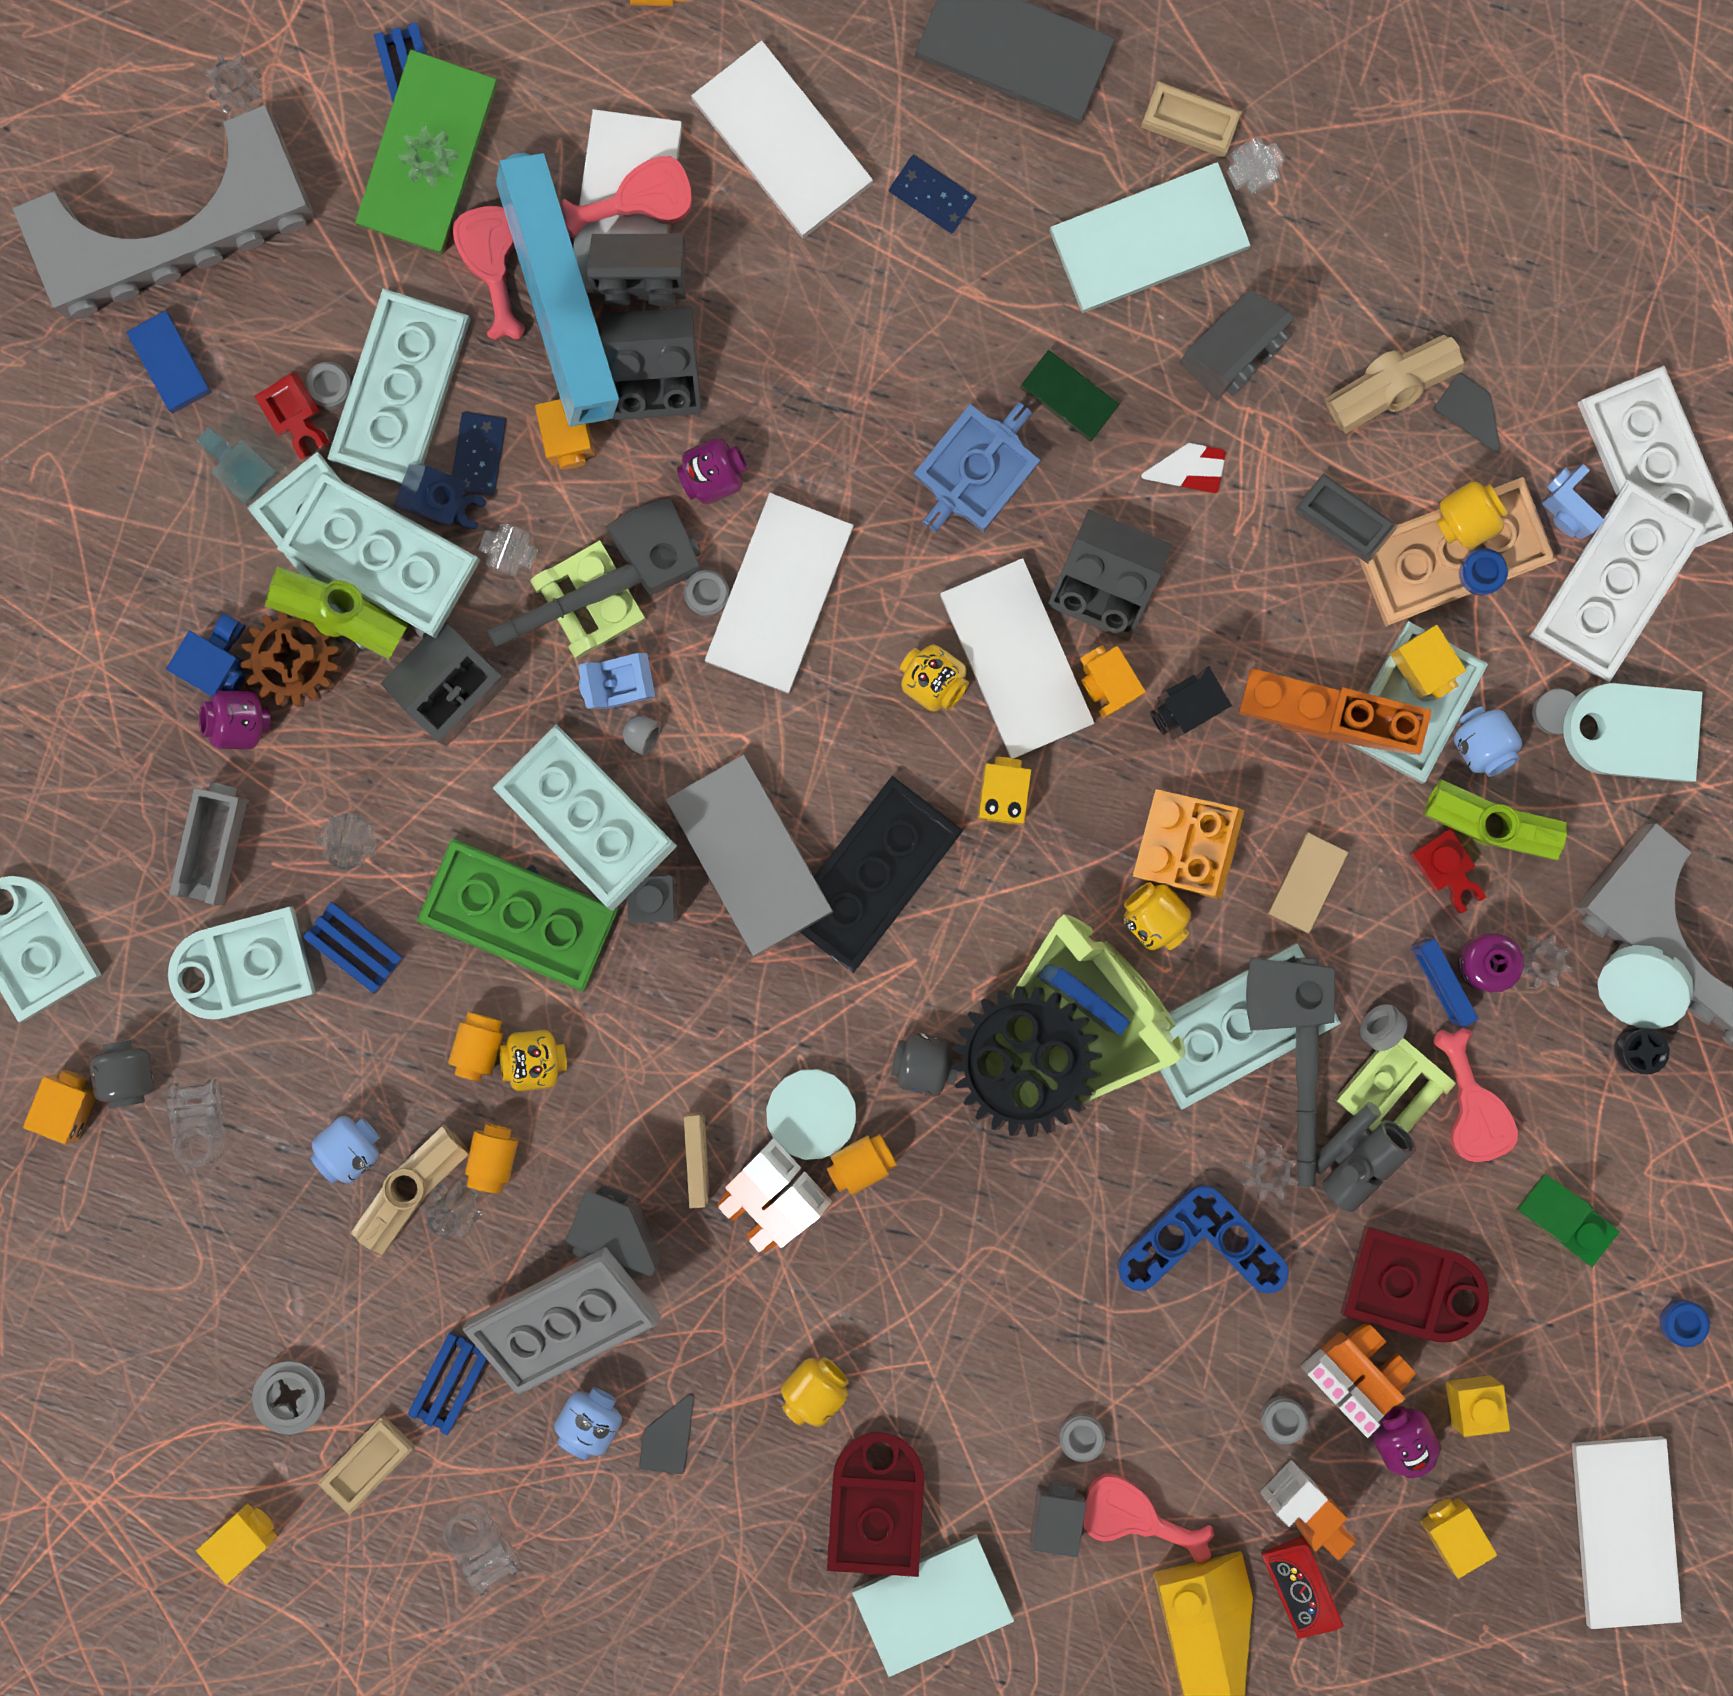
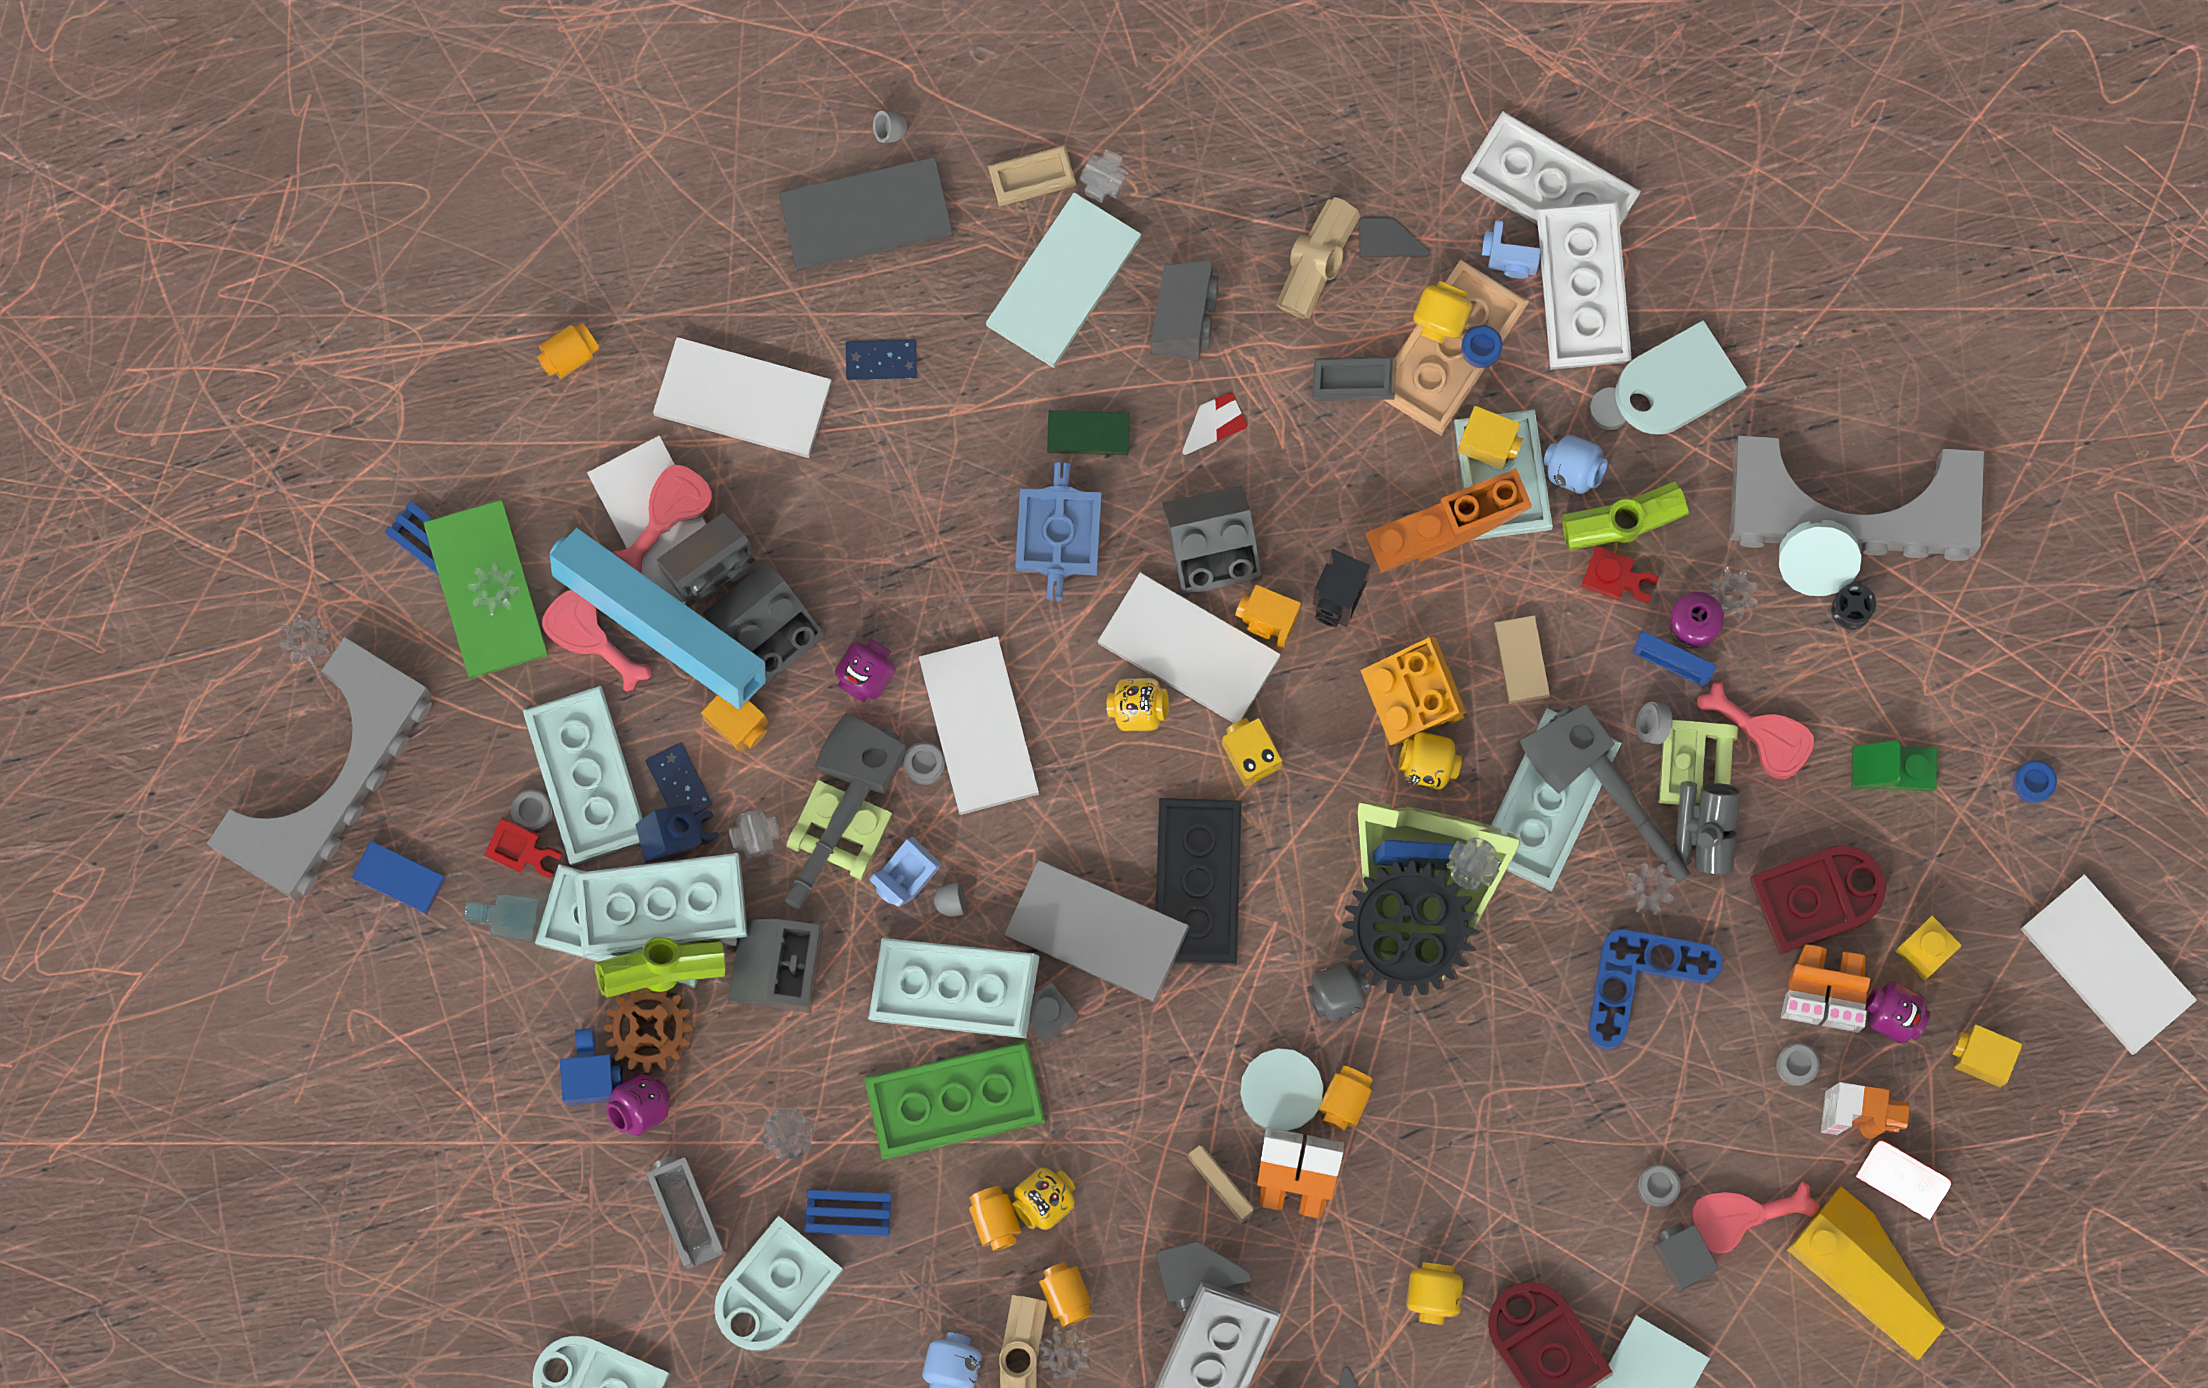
camera: 30 degrees left, 10 degrees down
(1124, 1049) = (1473, 863): none -> clear gear

